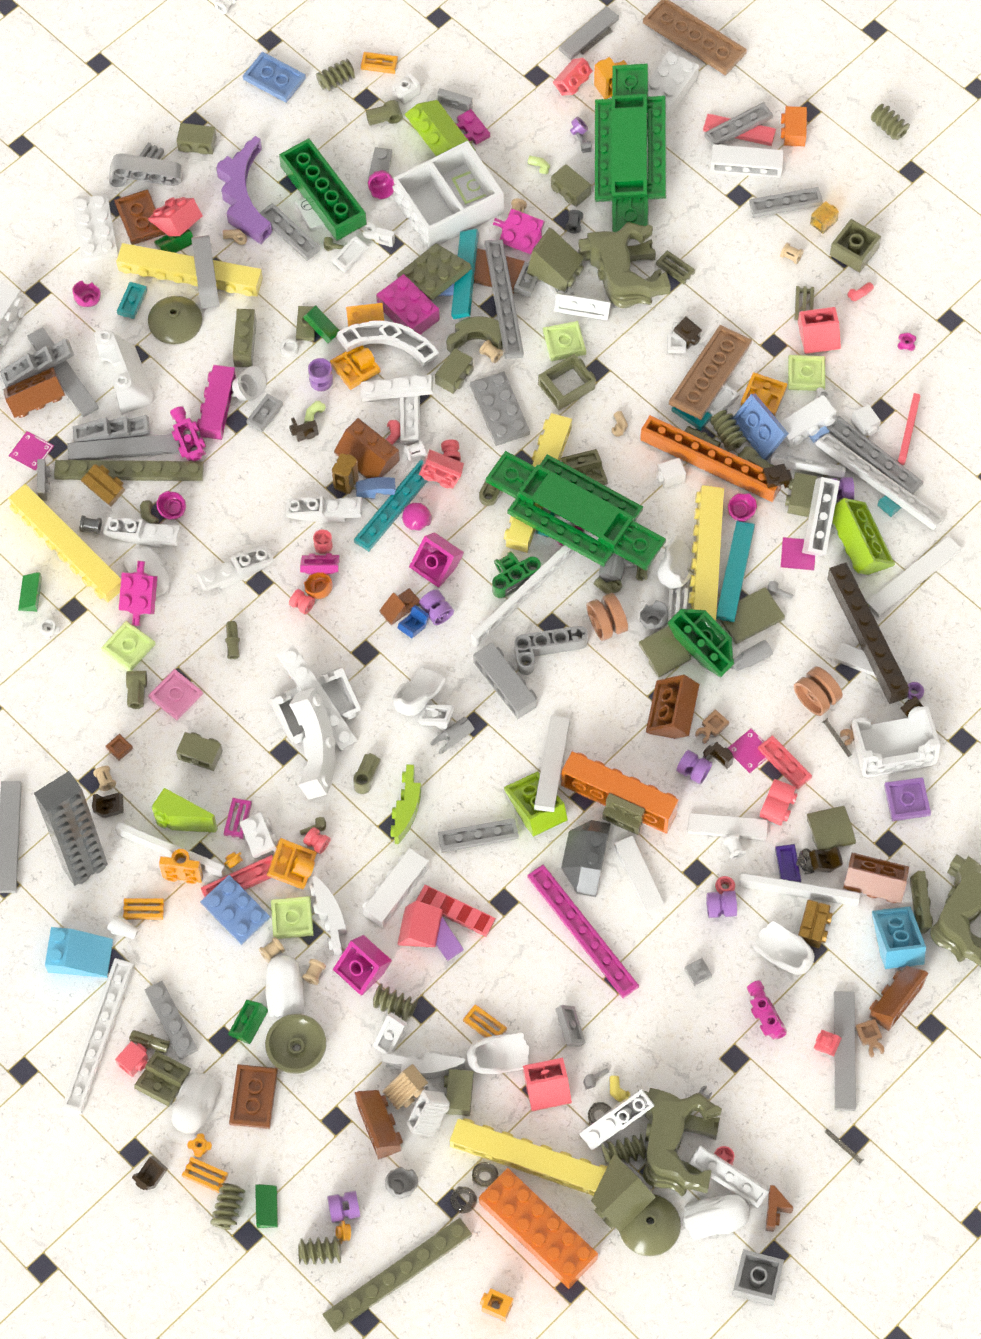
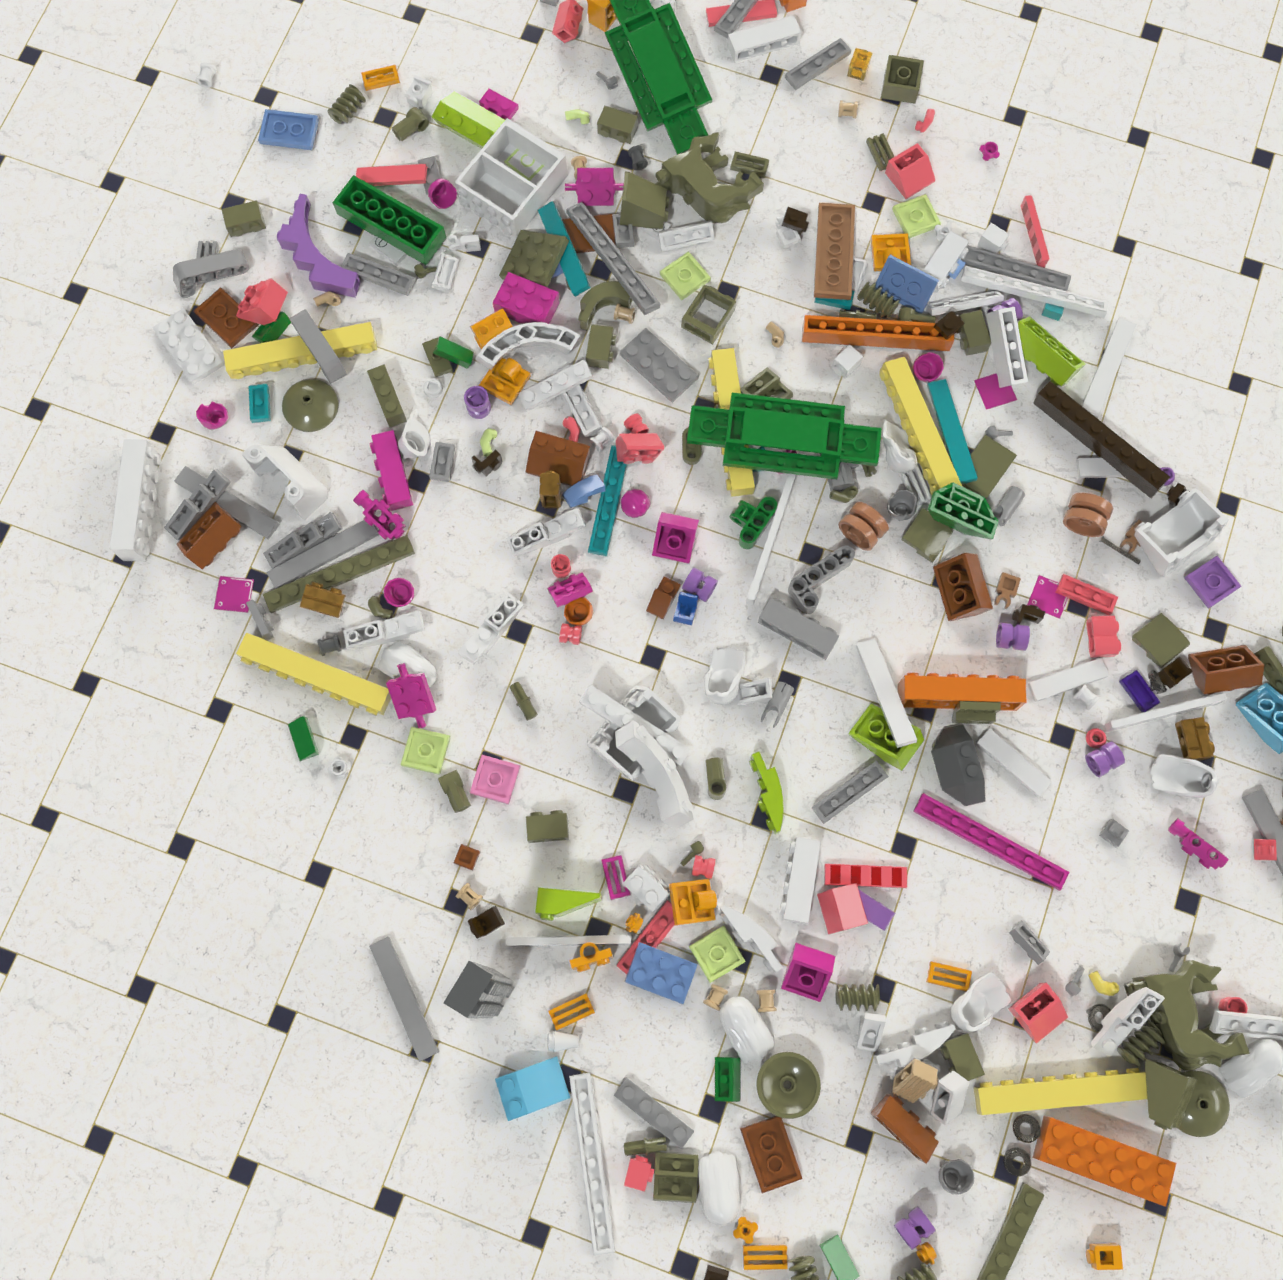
camera: 25 degrees left, 10 degrees up
(345, 151) = (393, 174): none -> coral tile
(454, 100) = (472, 85): light grey tile -> none
(578, 126) = (596, 66): medium lavender tile -> none

